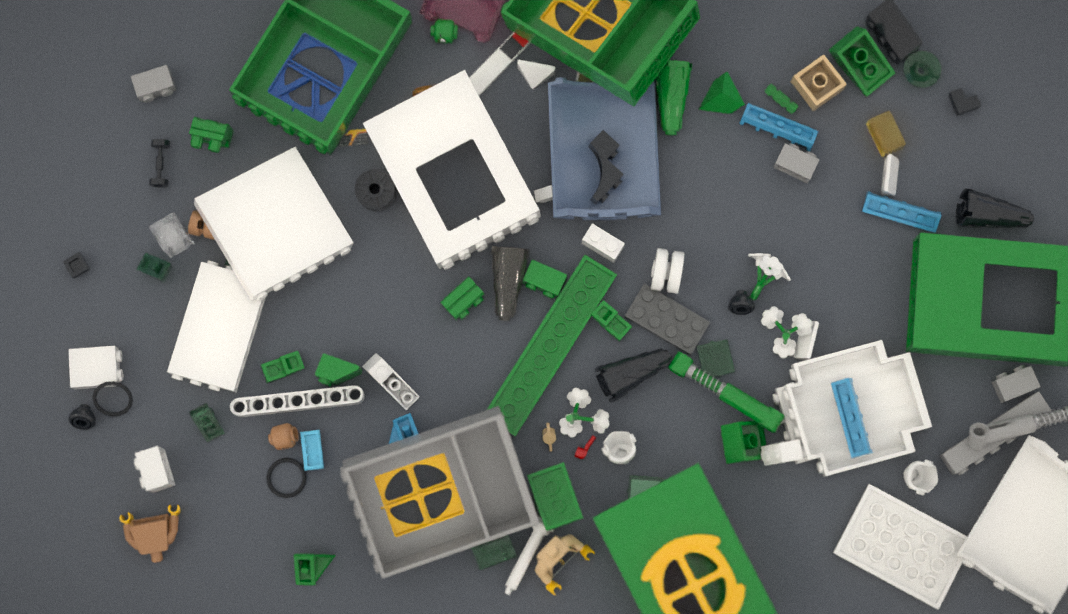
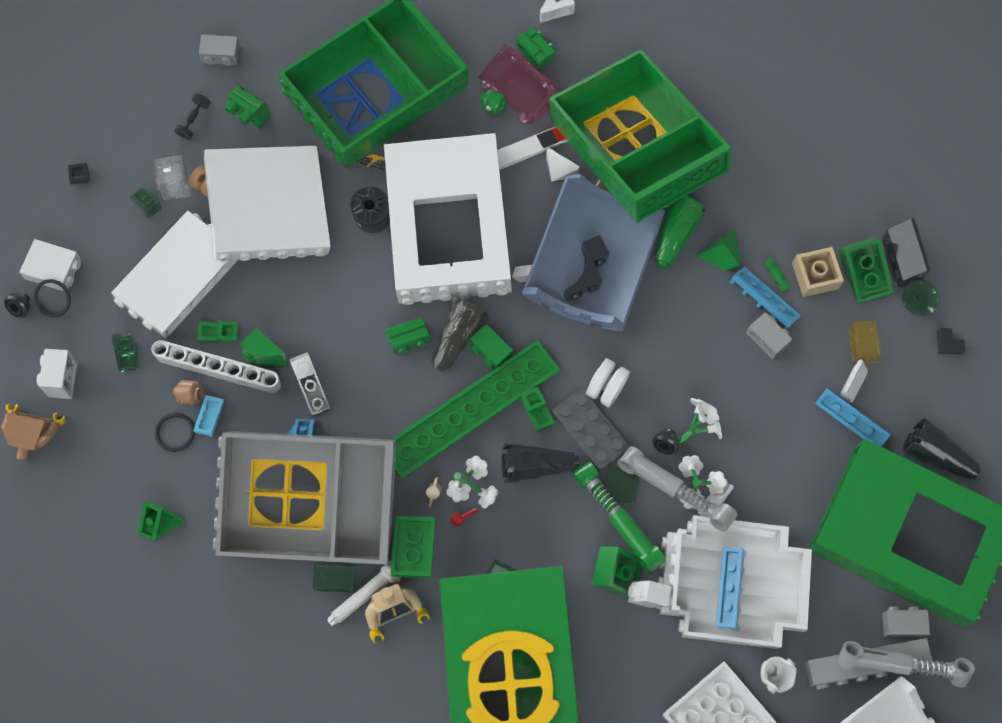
camera: 20 degrees right, 10 degrees down
(603, 243) = (558, 336): white brick -> none
(619, 447) = (495, 527): white cap -> none
(722, 335) = (635, 462): none -> light grey piece

